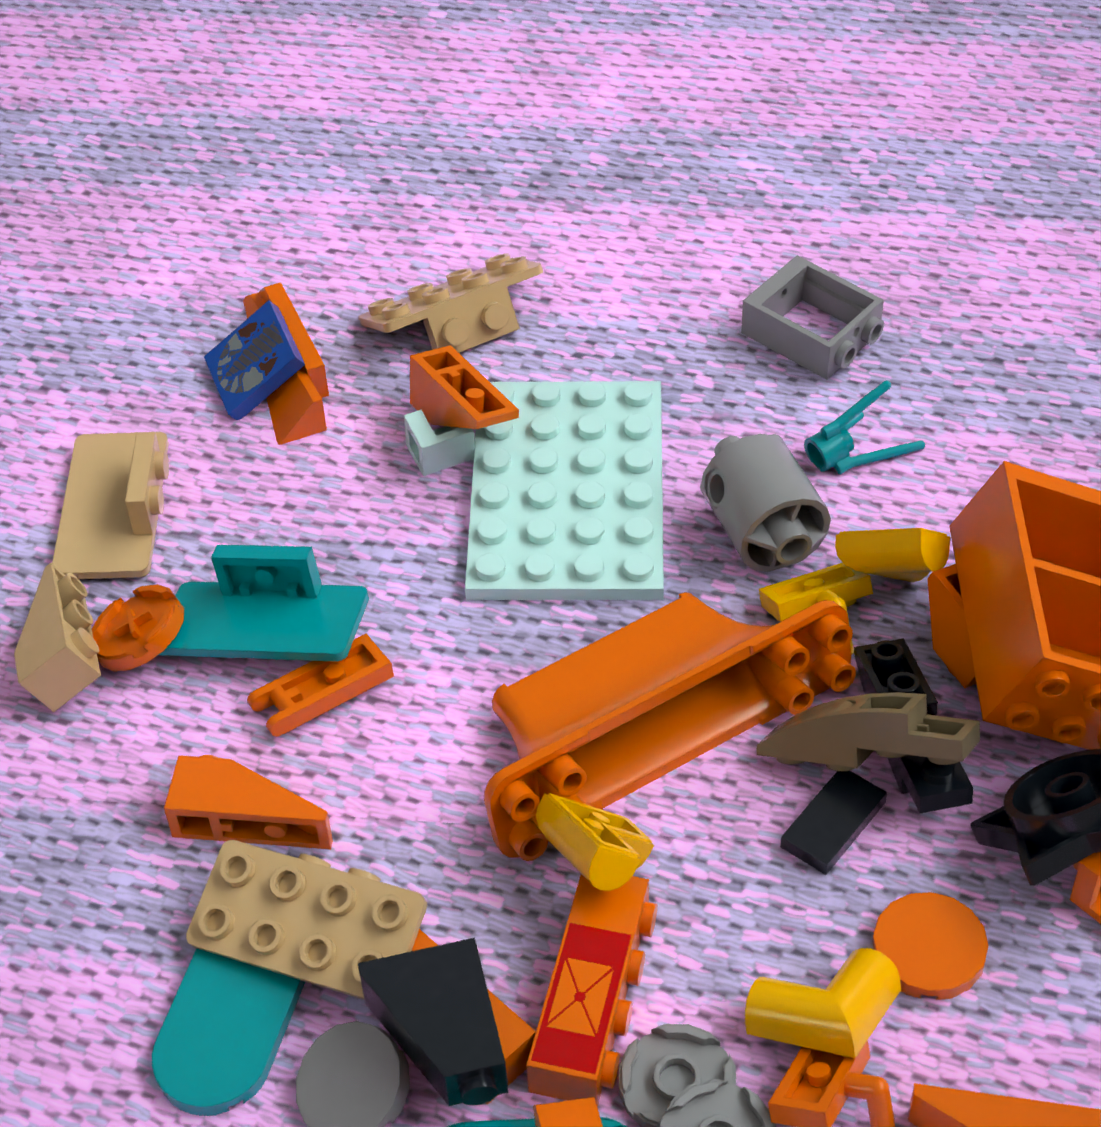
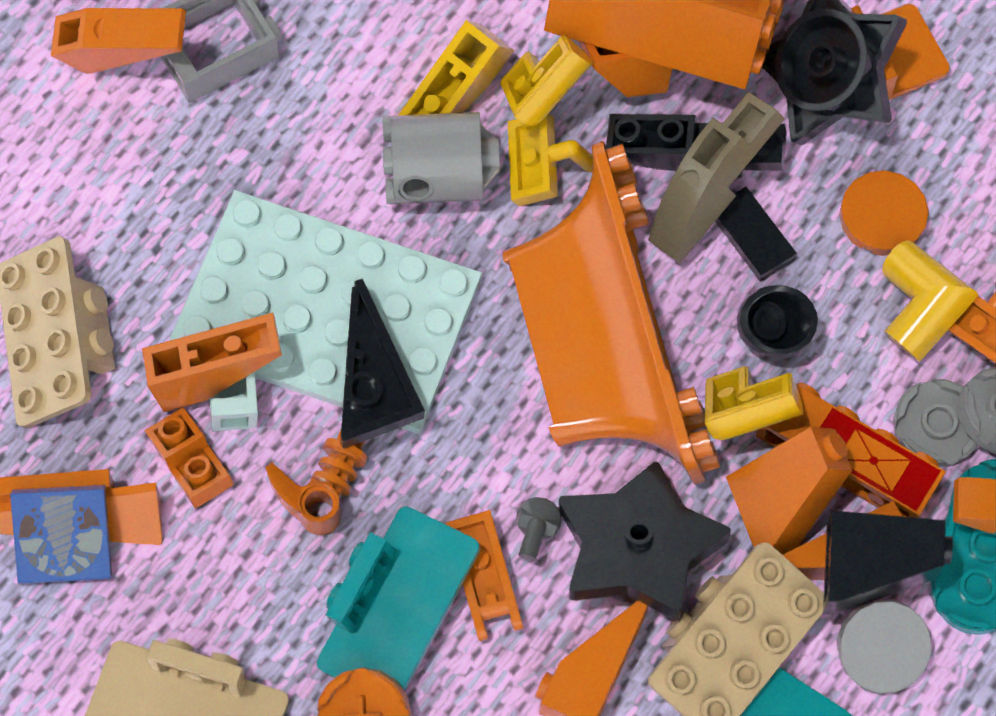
camera: 75 degrees left, 20 degrees up
(353, 533) = (323, 487): none -> orange piece
(373, 431) = (189, 457): none -> orange slope
(392, 797) = (638, 543): none -> black plate
(398, 708) = (537, 520): none -> dark grey plate
(494, 522) = (376, 383): none -> black wing
(511, 914) = (790, 487): none -> orange slope
(719, 856) = (777, 321): none -> black hat
(762, 238) = (116, 36): none -> orange slope
(833, 442) = (374, 84): teal plant -> none
(882, 499) = (460, 72): none -> yellow slope

